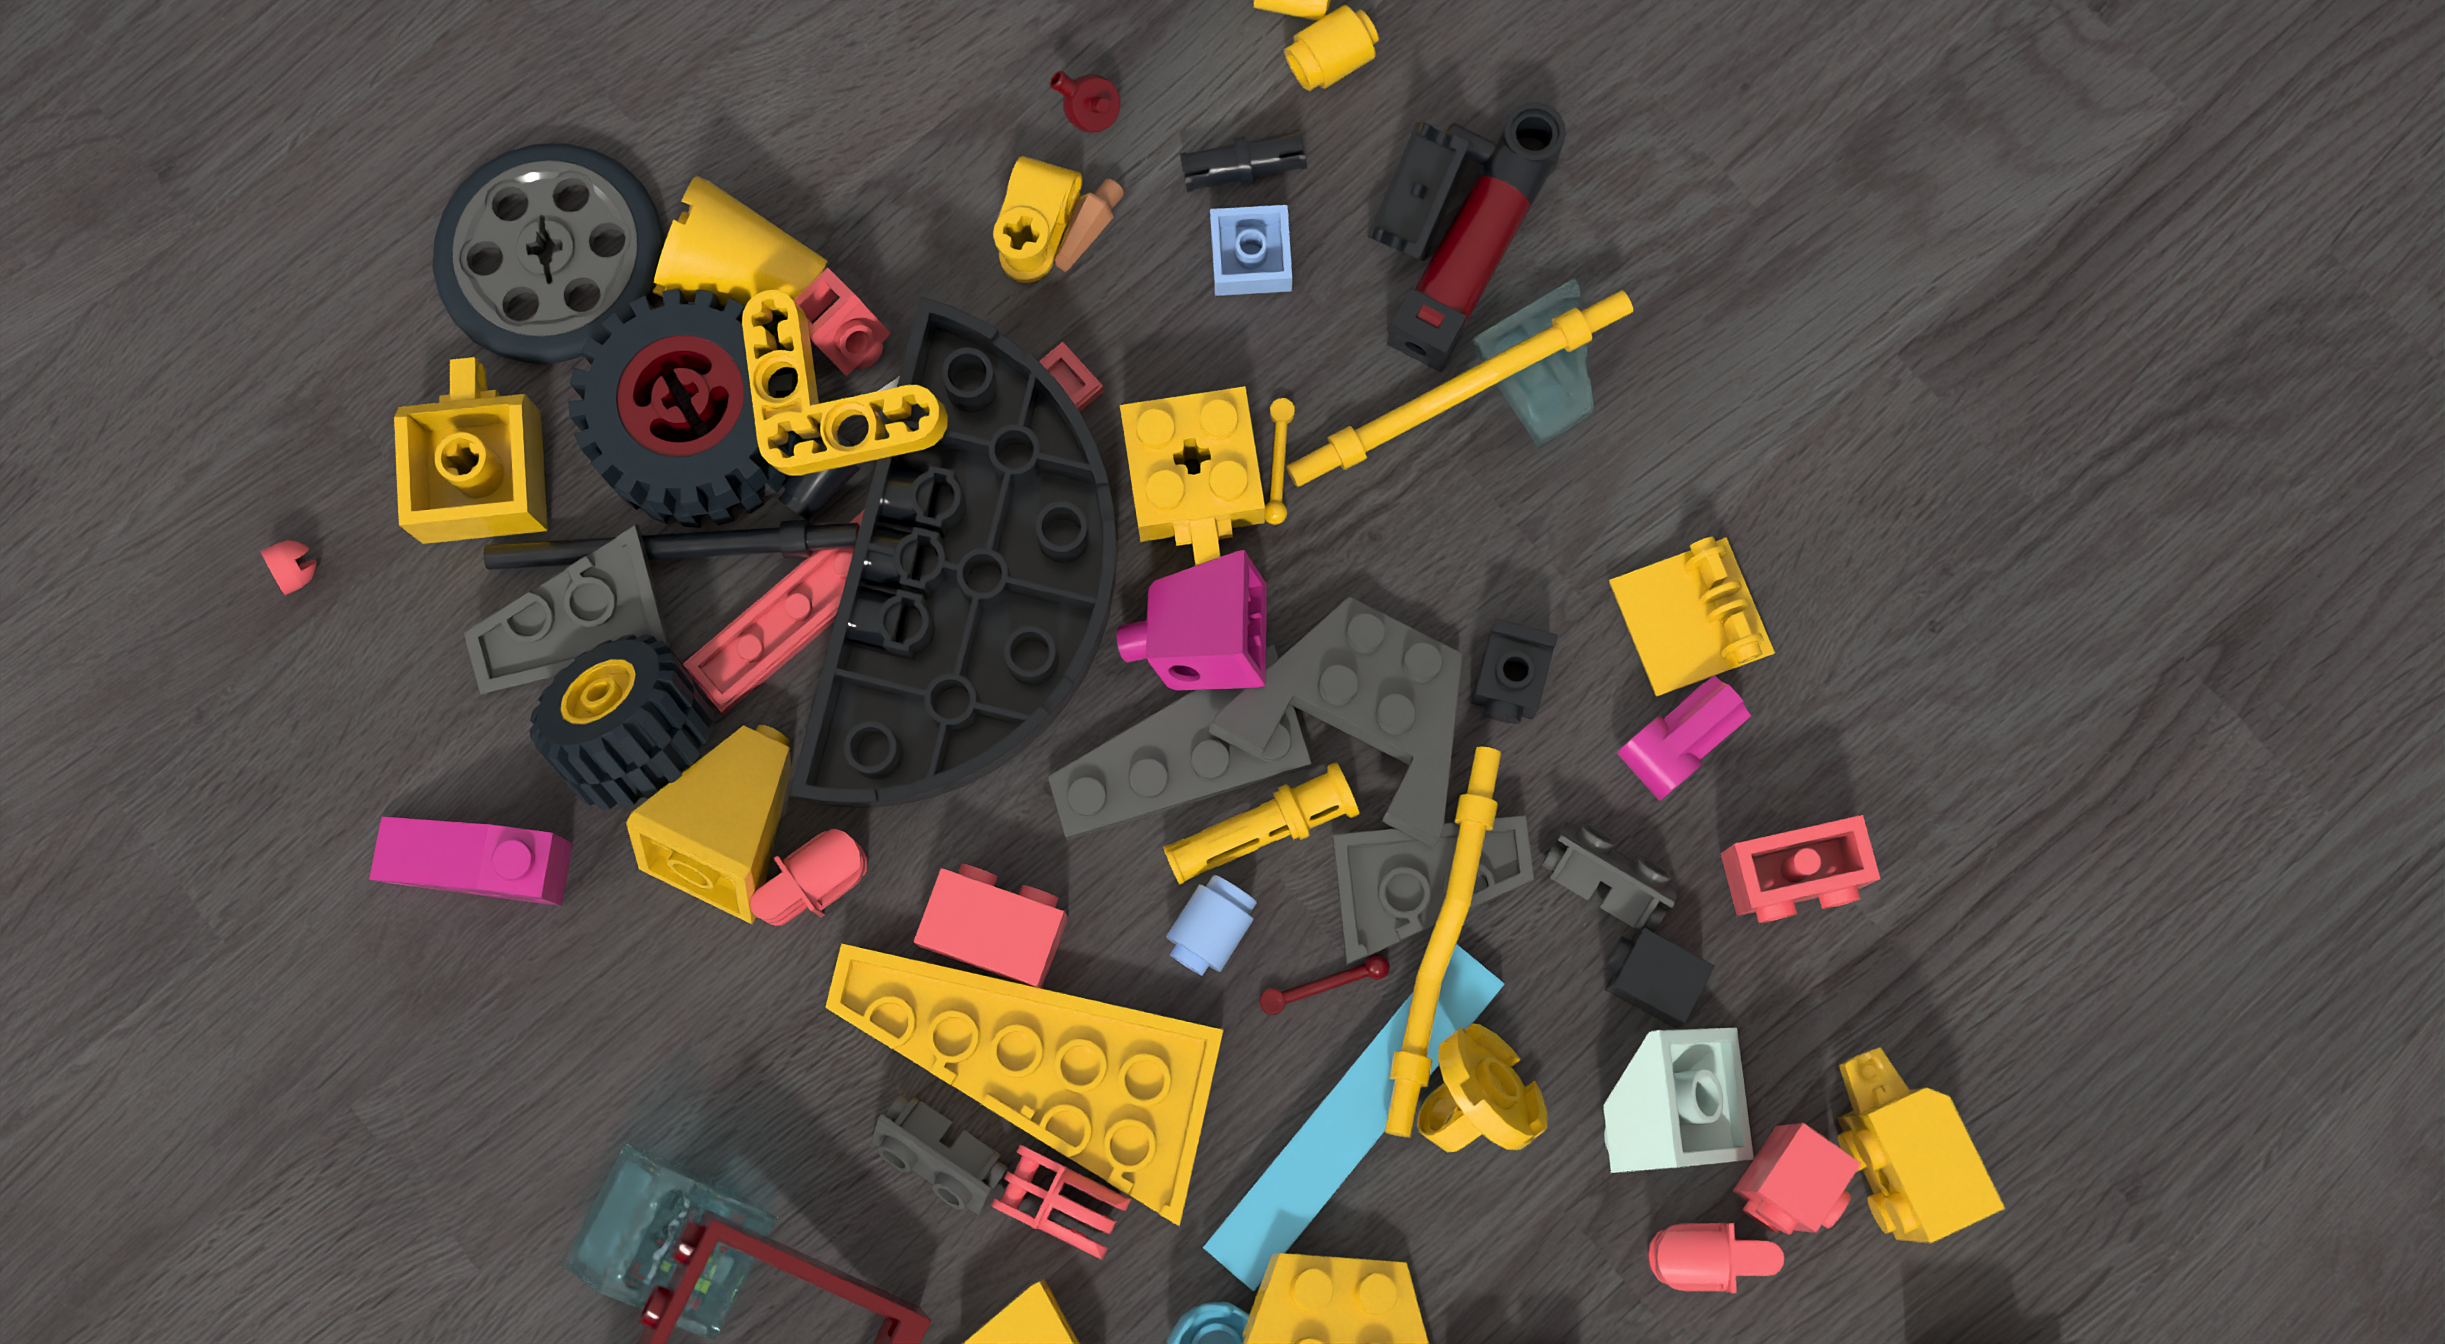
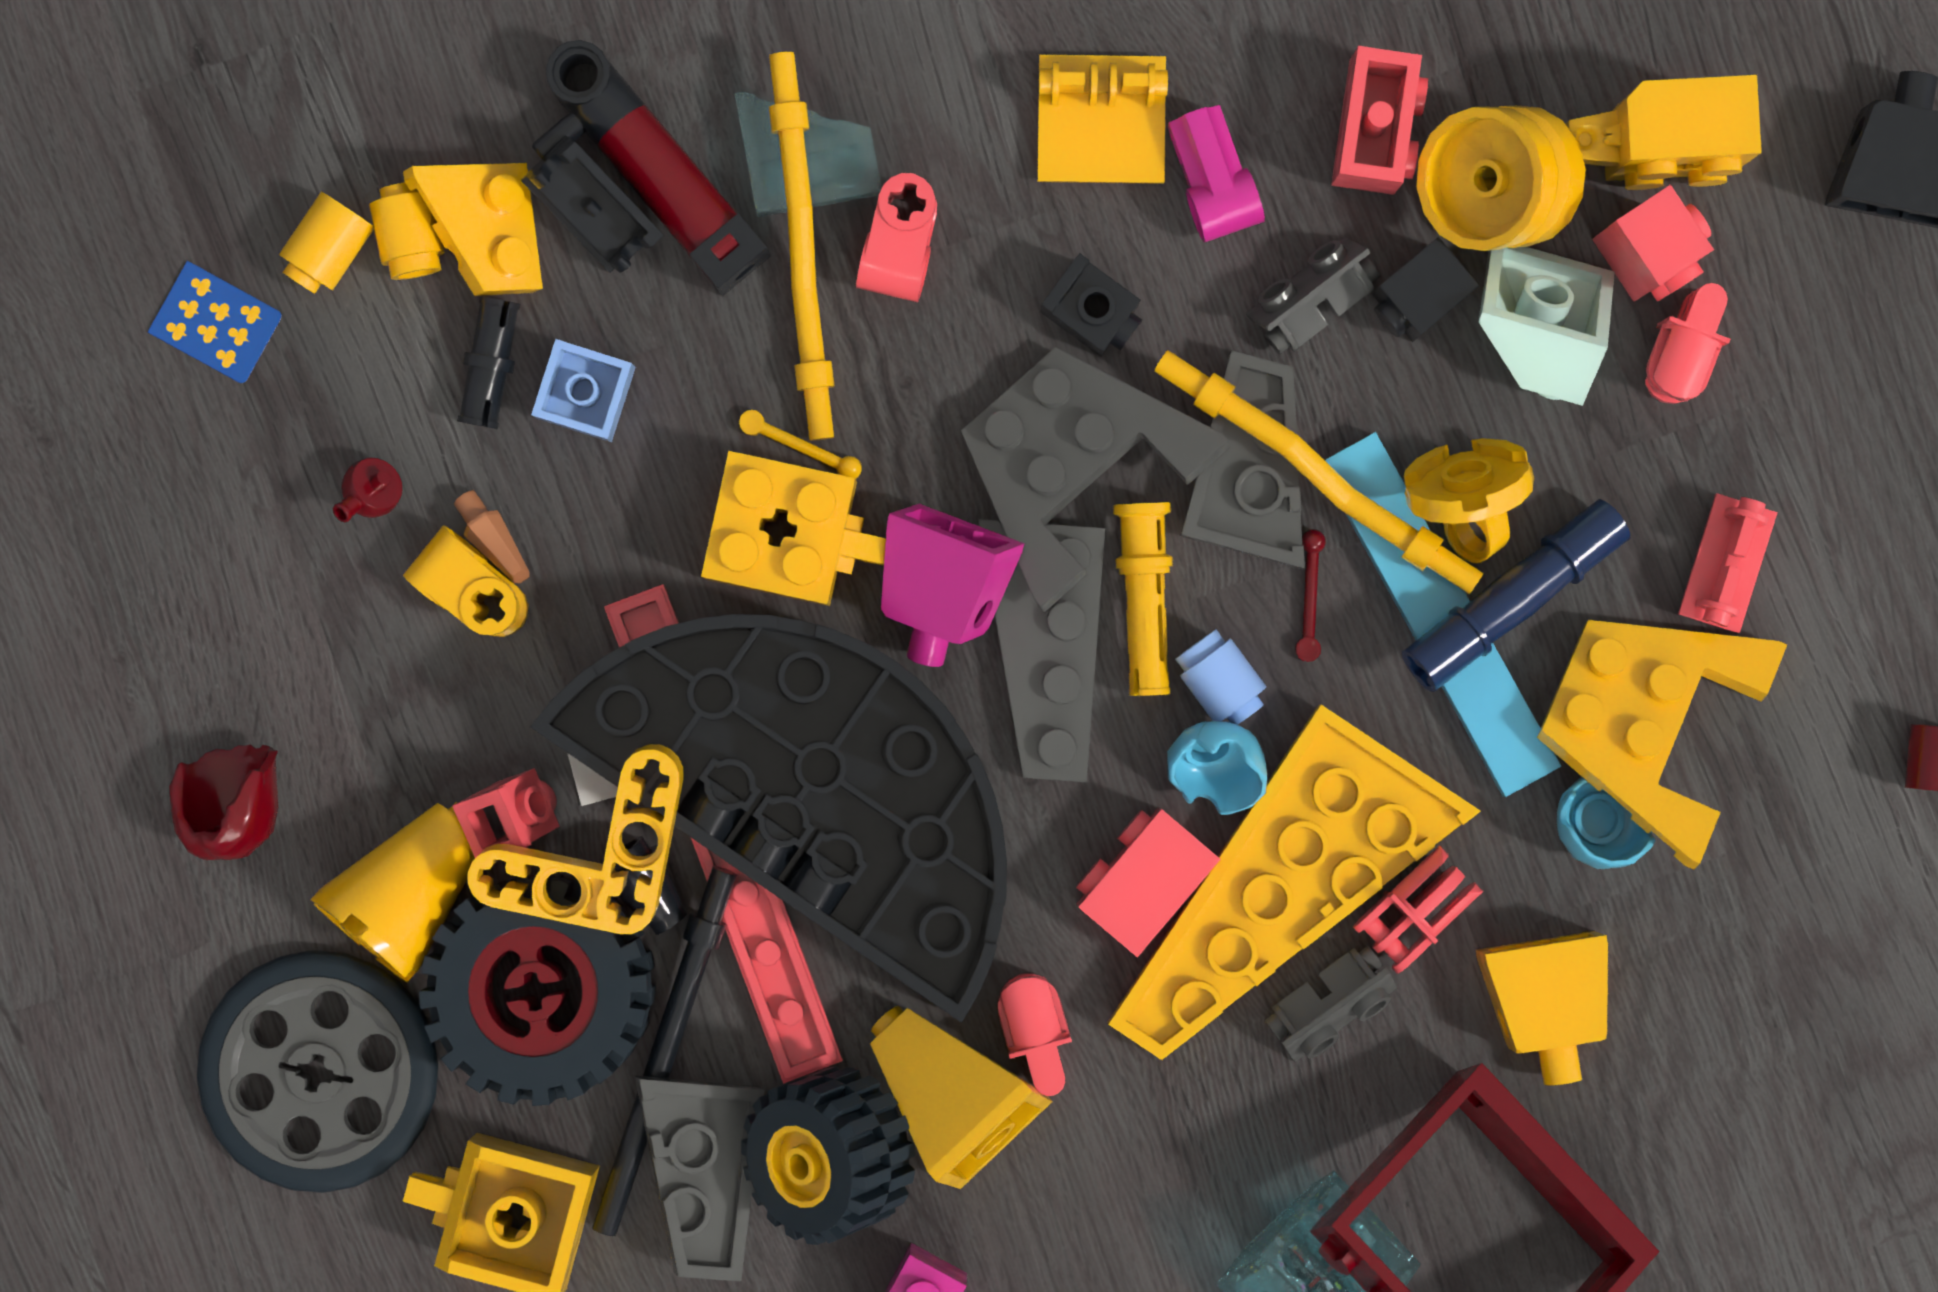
camera: 70 degrees left, 10 degrees up
(760, 80) = (225, 802): none -> dark red hair
(1128, 952) = (1218, 764): none -> medium azure hair
(1367, 107) = (484, 222): none -> yellow wing
(1402, 1179) = (1516, 595): none -> dark blue piece
(1496, 475) = (898, 250): none -> coral piece
(1797, 1002) = (1500, 177): none -> yellow wheel

